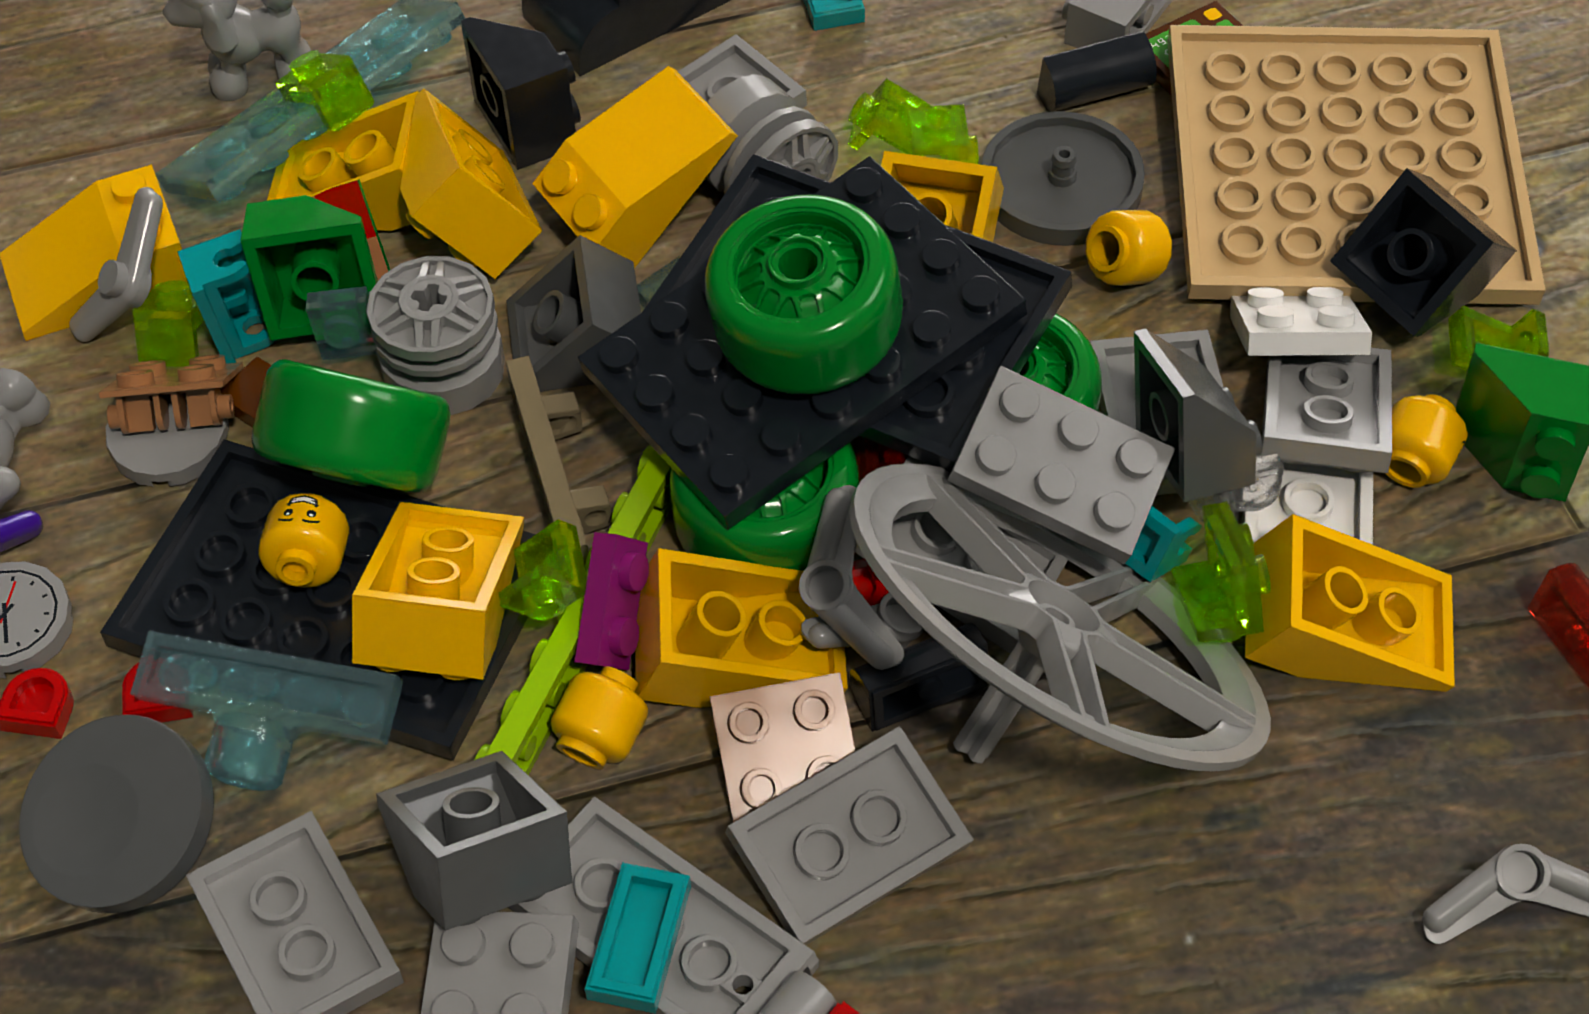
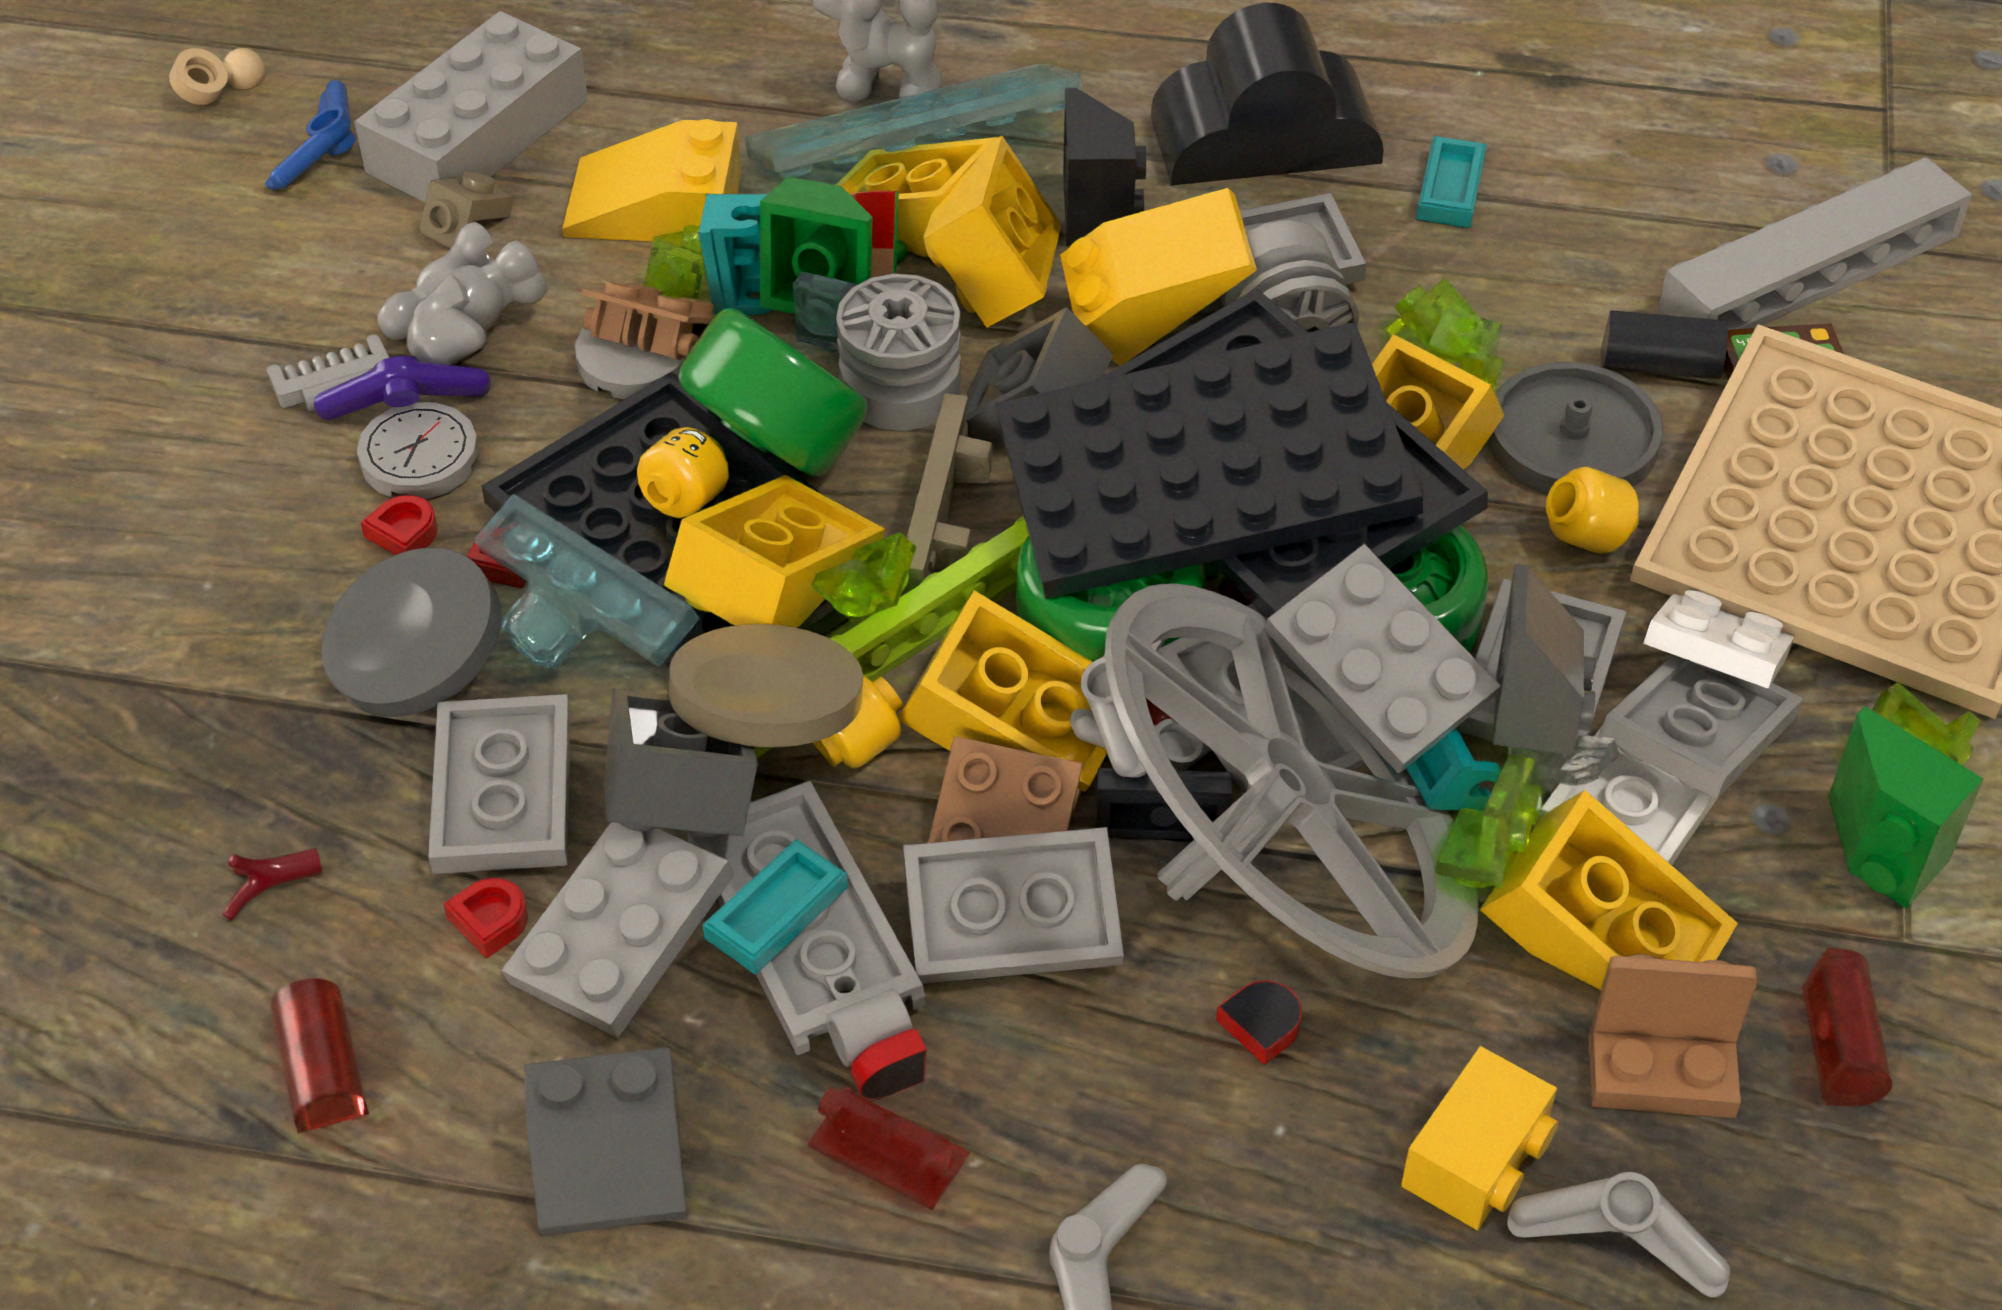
camera: 25 degrees right, 5 degrees down
(128, 279) = (660, 208): light grey piece -> none
(330, 85) = (924, 109): clear neon green bracket -> none
(519, 726) = (765, 685): none -> dark tan piece
(612, 601) = (915, 623): magenta plate -> none
(804, 294) = (1208, 410): green wheel -> none
(1119, 841) = (1262, 1018): none -> black tile
(1370, 871) = (1479, 1139): none -> yellow brick
(1422, 253) = (1882, 616): black slope -> none
(1425, 440) = (1780, 789): yellow head -> none
(1463, 708) = (1669, 1036): none -> medium nougat bracket

